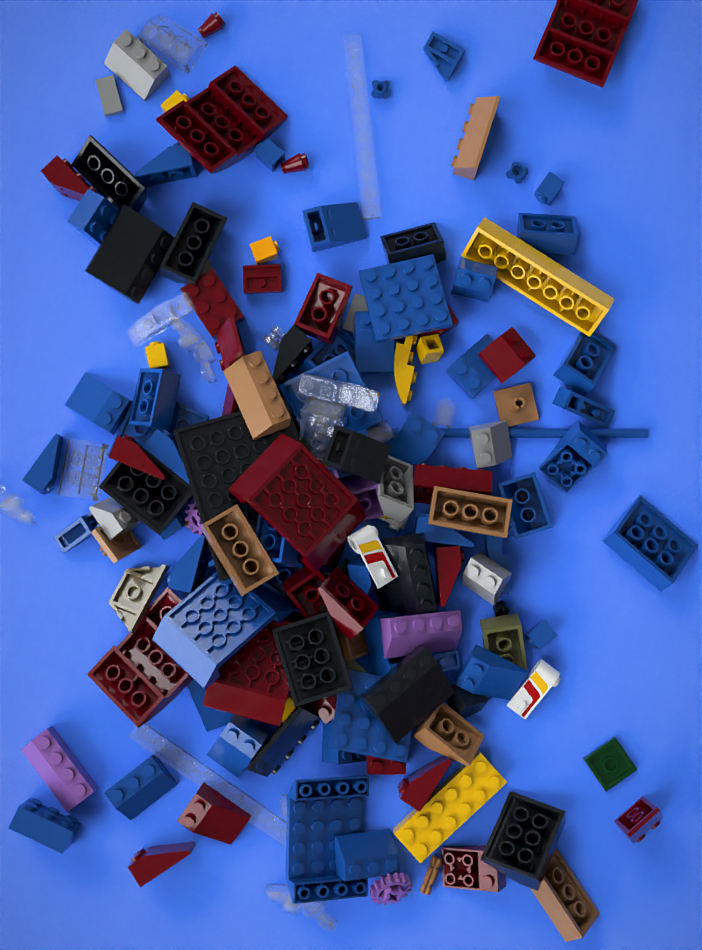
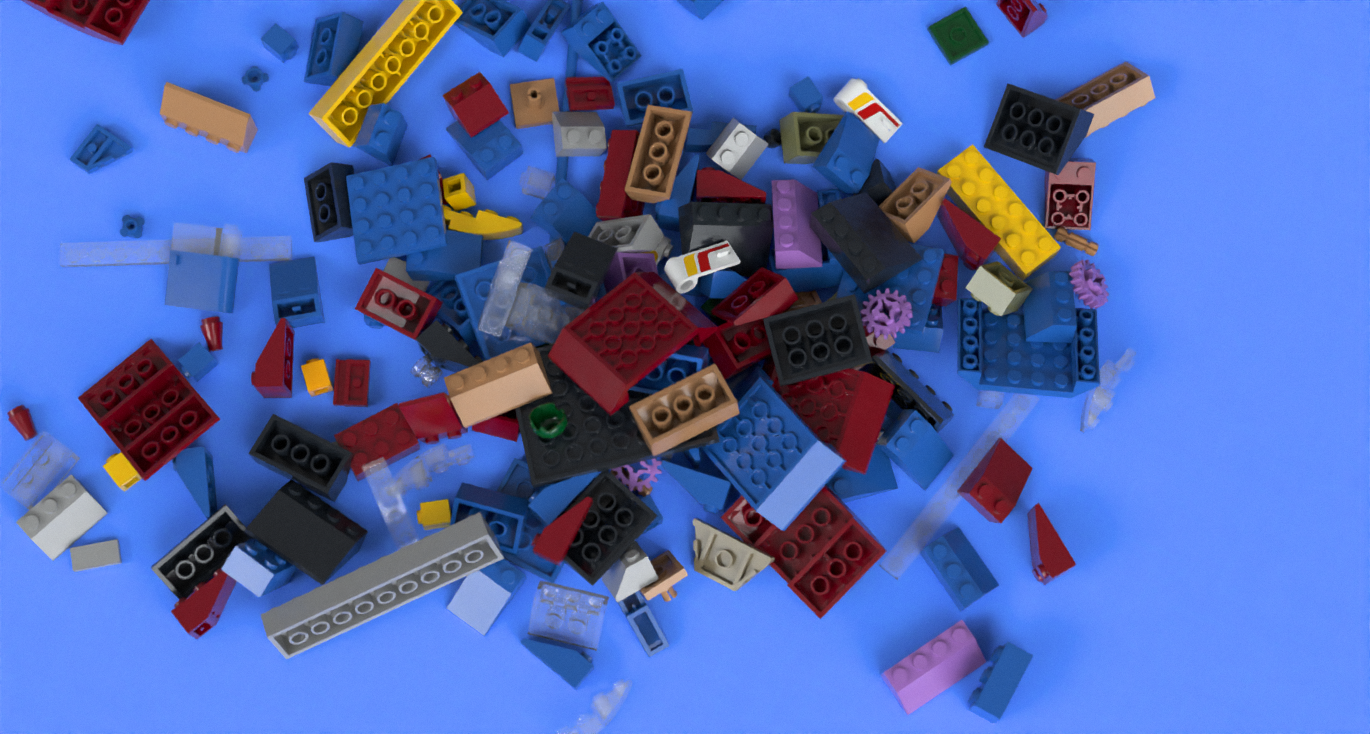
camera: 85 degrees left, 10 degrees down
(90, 319) = (382, 586): none -> light grey brick
(226, 438) = (548, 420): none -> dark green hair
(269, 216) = (275, 365): none -> dark red slope
(344, 725) = (895, 307): none -> medium lavender gear
(347, 149) = (203, 267): none -> blue door
(378, 810) = (998, 288): none -> brick
(527, 450) = (589, 93): none -> dark red plate

